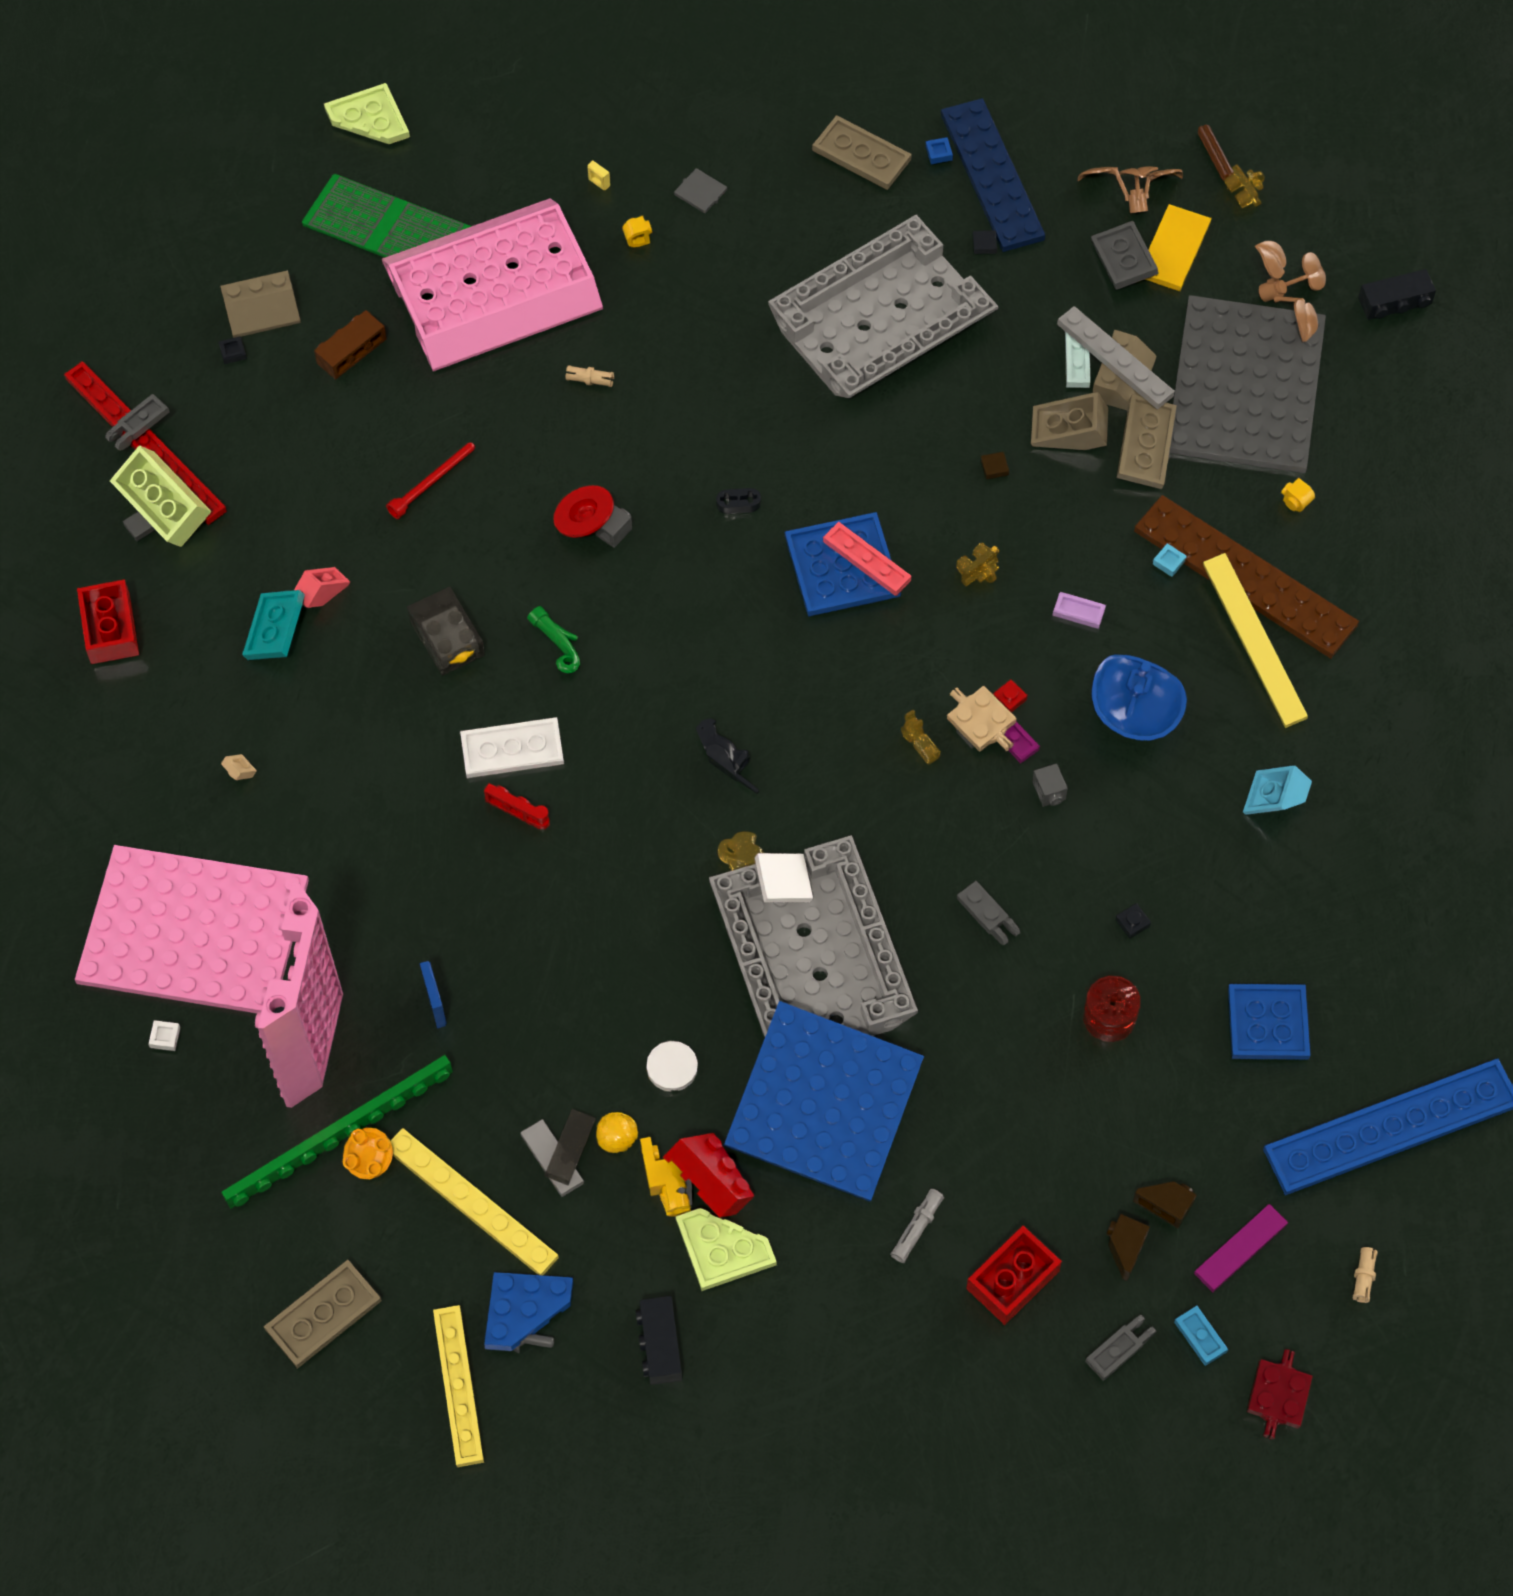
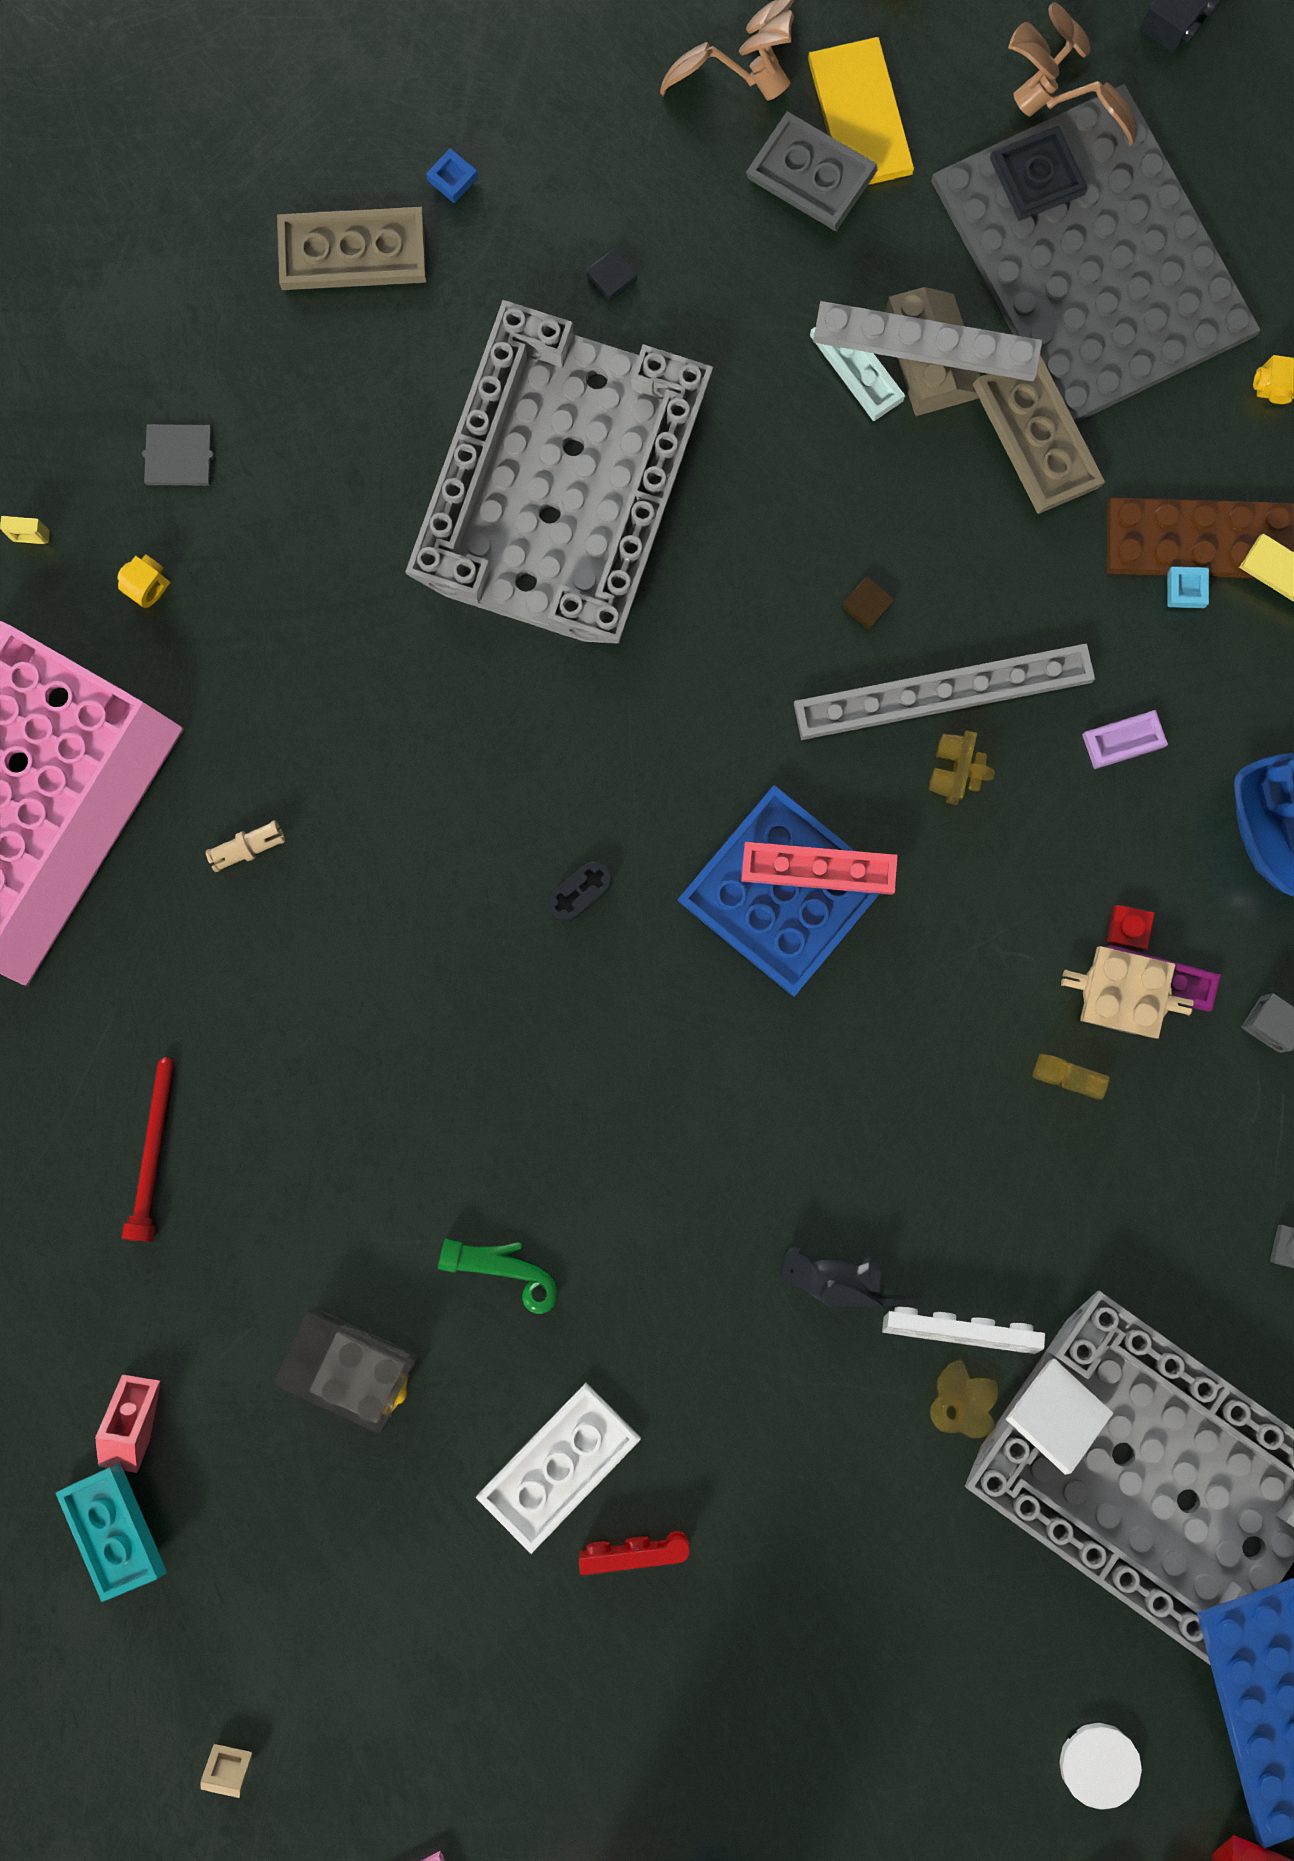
camera: 35 degrees left, 20 degrees up
(583, 511) = (395, 1062): red hat -> none
(616, 527) = (448, 1048): dark grey brick -> none
(766, 817) = (979, 1332): none -> white plate
(992, 175) = (546, 163): dark blue plate -> none
(1000, 527) = (944, 691): none -> light grey plate
(1071, 423) = (922, 475): dark tan slope -> none
(1242, 325) = (1038, 173): none -> black tile

